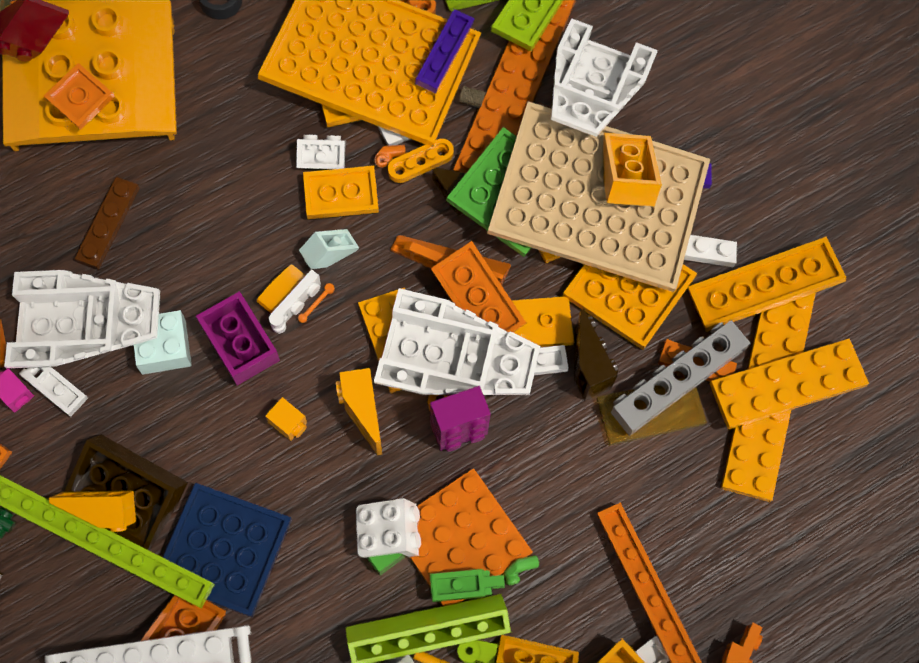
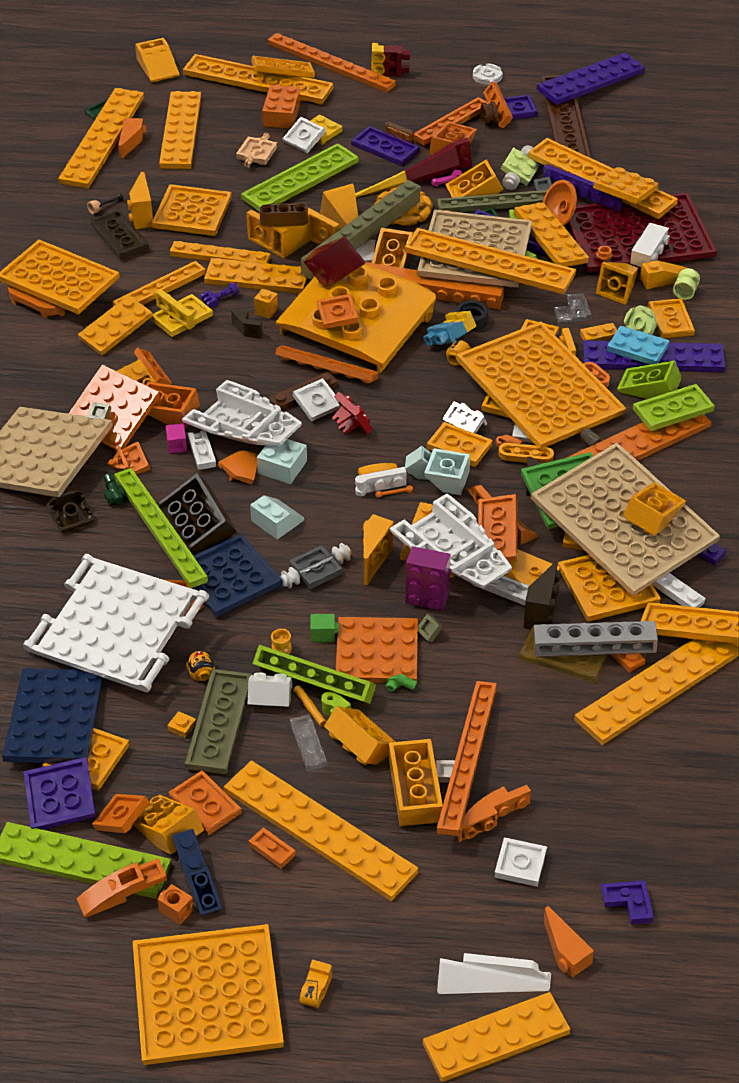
camera: 40 degrees right, 25 degrees down
(99, 508) = (179, 512): light orange slope -> none
(106, 166) = (320, 362): none -> orange plate
(119, 381) = (240, 466): none -> orange slope
(136, 228) = (316, 399): none -> white plate
(194, 232) = (350, 415): none -> red plate
(213, 427) = (274, 516): none -> light aqua slope
(215, 34) = (454, 327): none -> dark azure hips
(238, 338) = (329, 478): magenta brick -> none
(246, 61) = (456, 348): none -> light orange head
(287, 419) = (323, 533): light orange brick -> none
(312, 471) = (316, 566): none -> dark grey plate
(351, 603) = (281, 641): none -> light orange wheel
(361, 242) = (448, 470): none -> light aqua slope
(388, 528) = (339, 608): white bracket -> none
(444, 51) = (590, 401): dark purple plate -> none
(464, 585) = (357, 663): bright green hinge -> none
(497, 473) = (429, 627): none -> olive plate
(595, 79) = (675, 456): white wedge -> none
(788, 383) = (670, 683): light orange plate -> none

